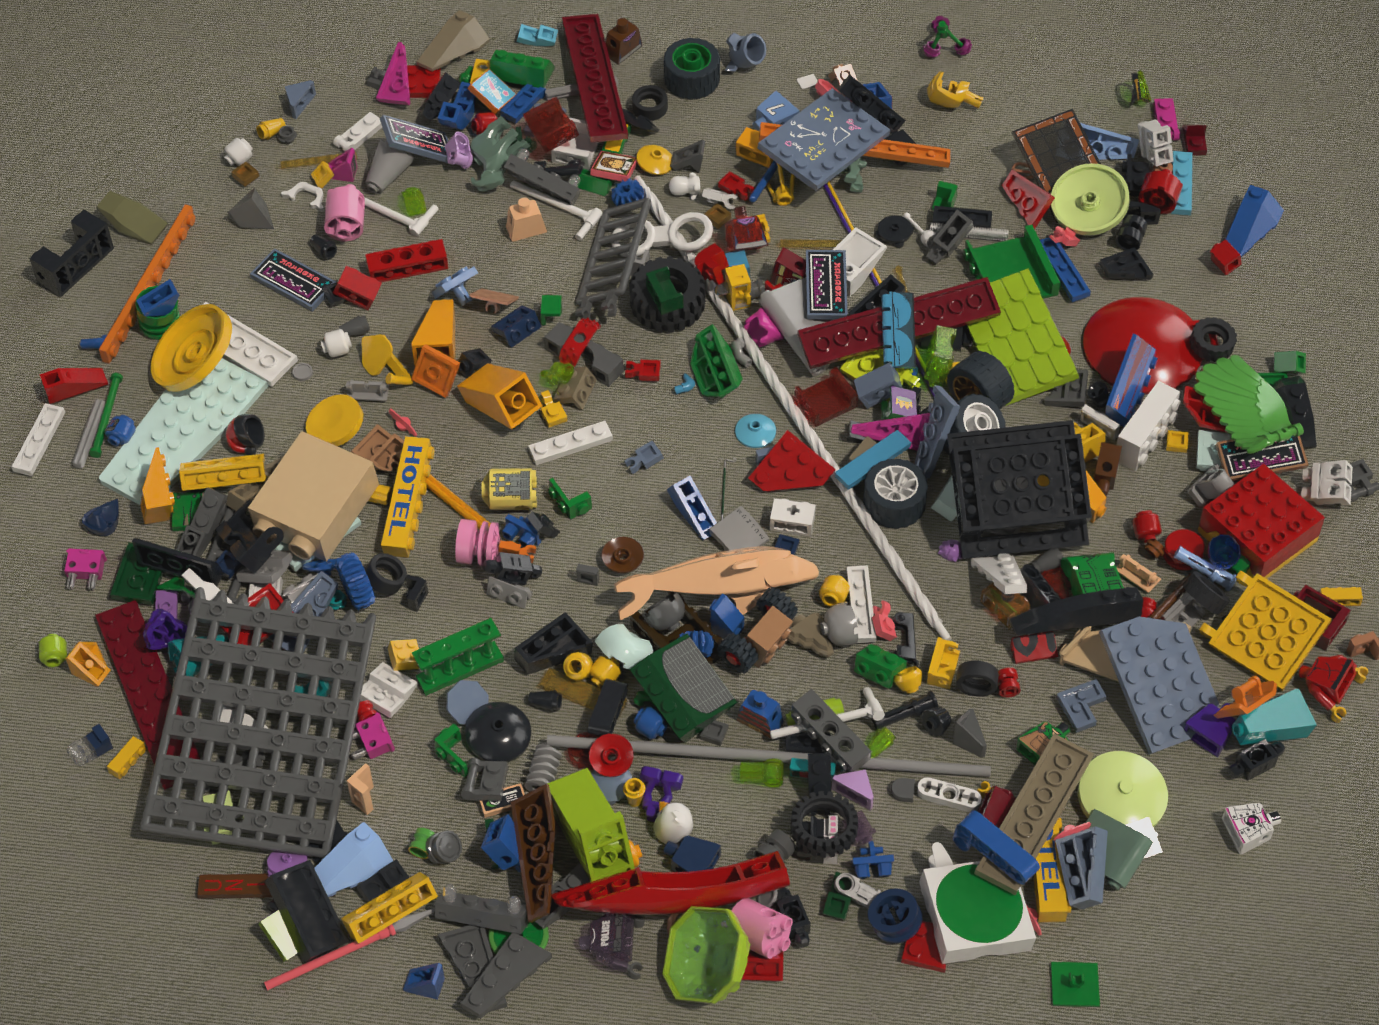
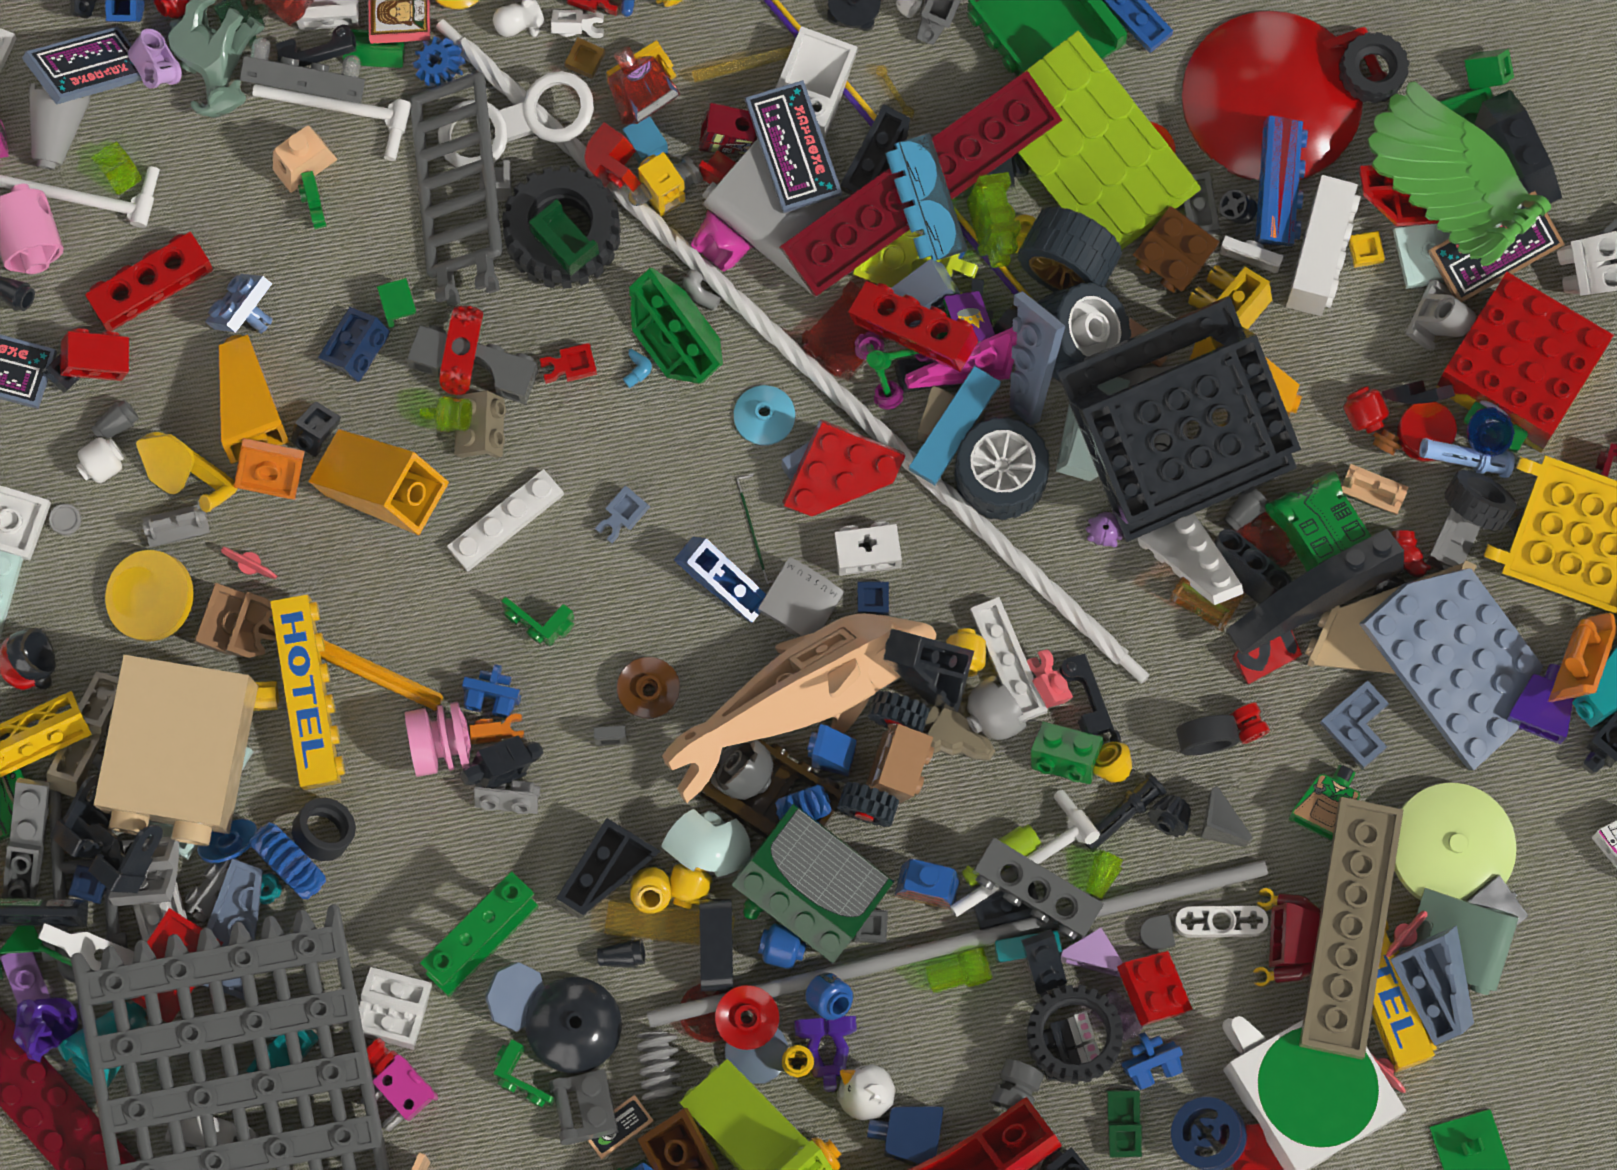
camera: 20 degrees left, 20 degrees up
(401, 654) = (398, 947): yellow piece -> none
(417, 591) = (378, 846): black bracket -> none
(494, 298) = (305, 308): nougat piece -> none
(510, 489) = (451, 635): light yellow cylinder -> none
(523, 242) = (309, 193): none -> green plate
(543, 524) = (519, 678): black plate -> none
(552, 412) = (462, 476): yellow plate -> none
(669, 755) = (829, 996): none -> blue head
(805, 578) = (930, 667): none -> black wedge
(837, 408) = (871, 349): none -> plant
(858, 892) = (1147, 1110): light grey piece -> none
(865, 394) = (951, 350): none -> red brick
(889, 817) = (1154, 988): none -> red plate
(943, 663) = (1151, 720): yellow hinge -> none
(996, 846) = (1320, 1004): blue beam -> none
(1051, 404) = (1175, 250): none -> reddish brown plate
(1107, 466) = (1285, 322): reddish brown torso -> none
(1162, 609) = (1434, 519): reddish brown bar -> none
(1180, 521) = (1416, 393): none -> black slope

